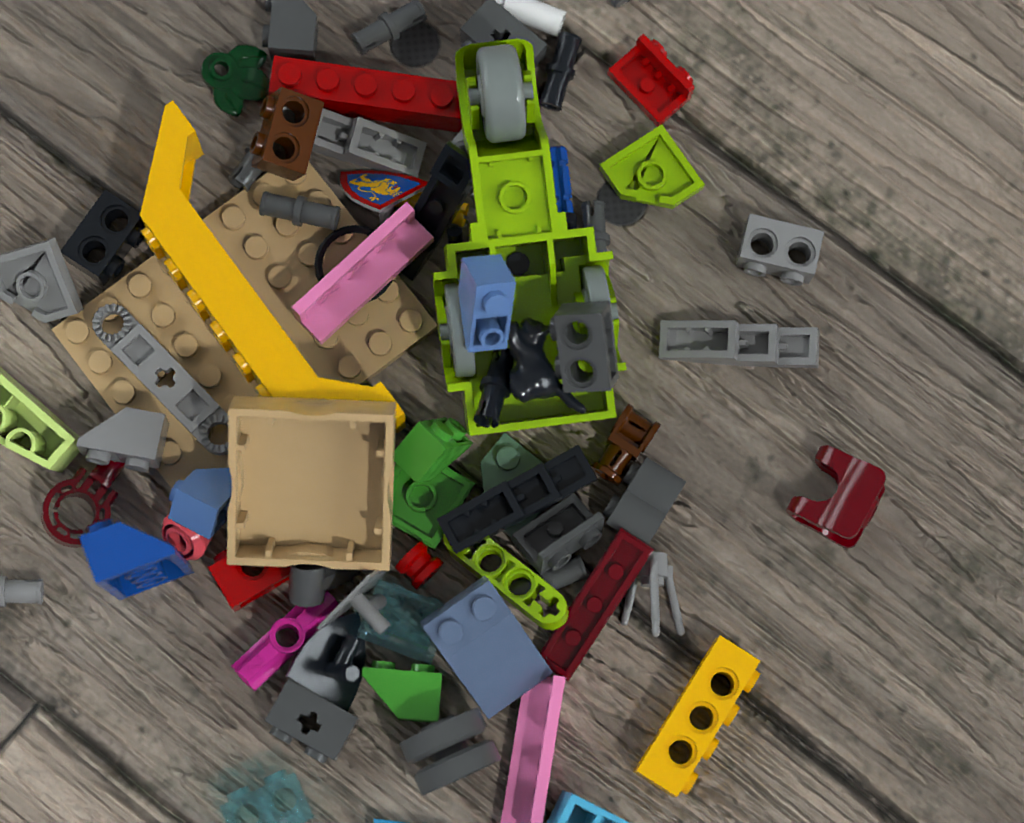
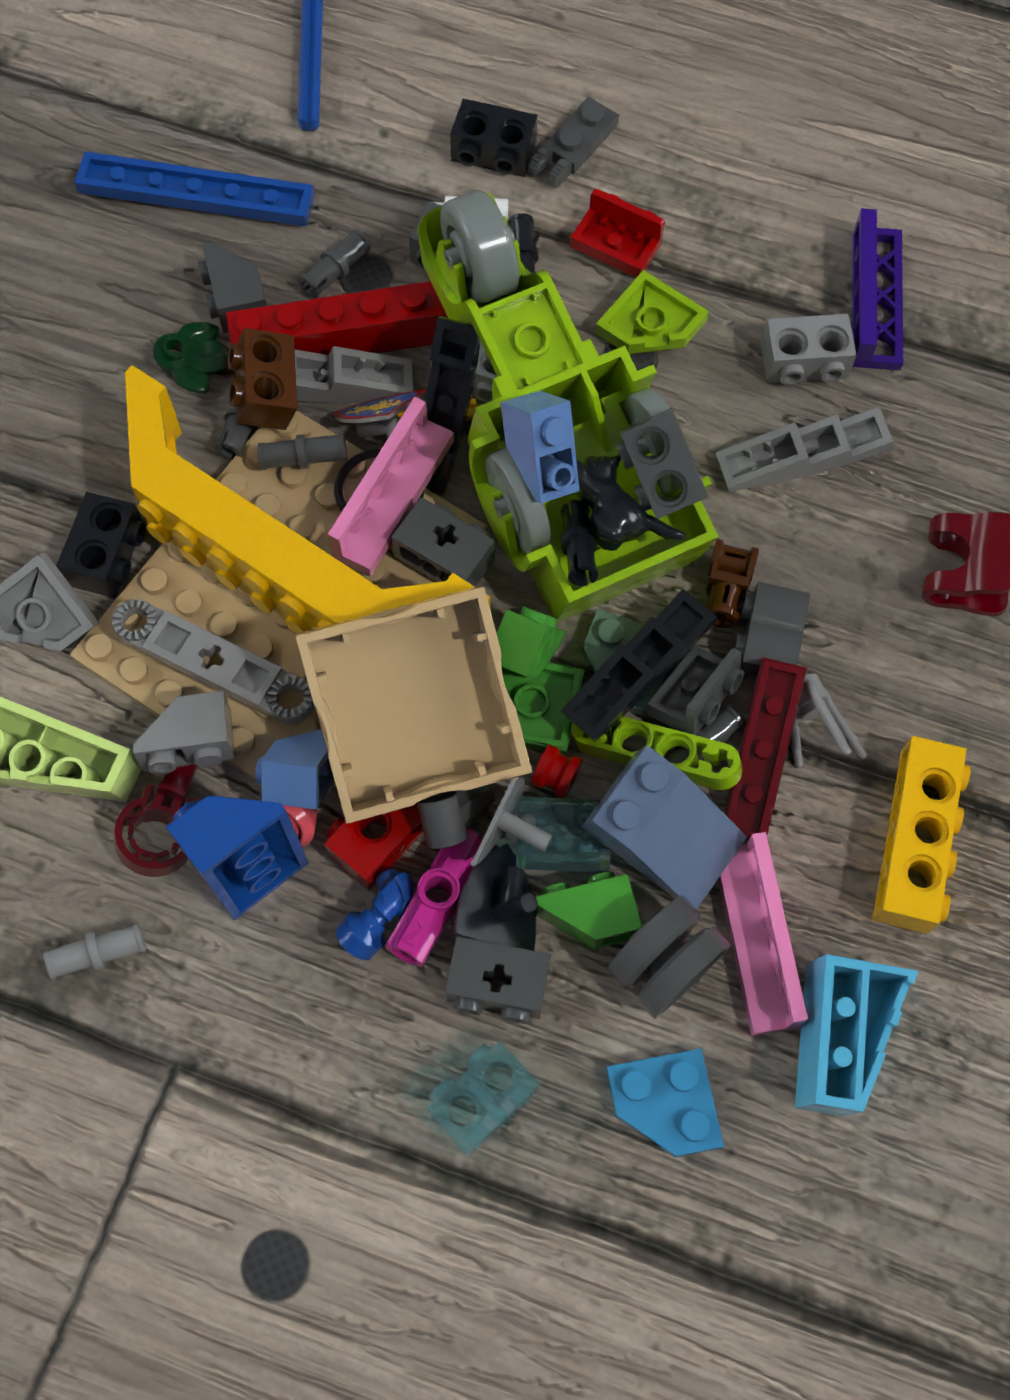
camera: 10 degrees left, 10 degrees down
(217, 647) = (363, 932): none -> blue arm
(370, 331) = (442, 544): none -> dark grey brick
(856, 202) = (868, 296): none -> dark purple fence

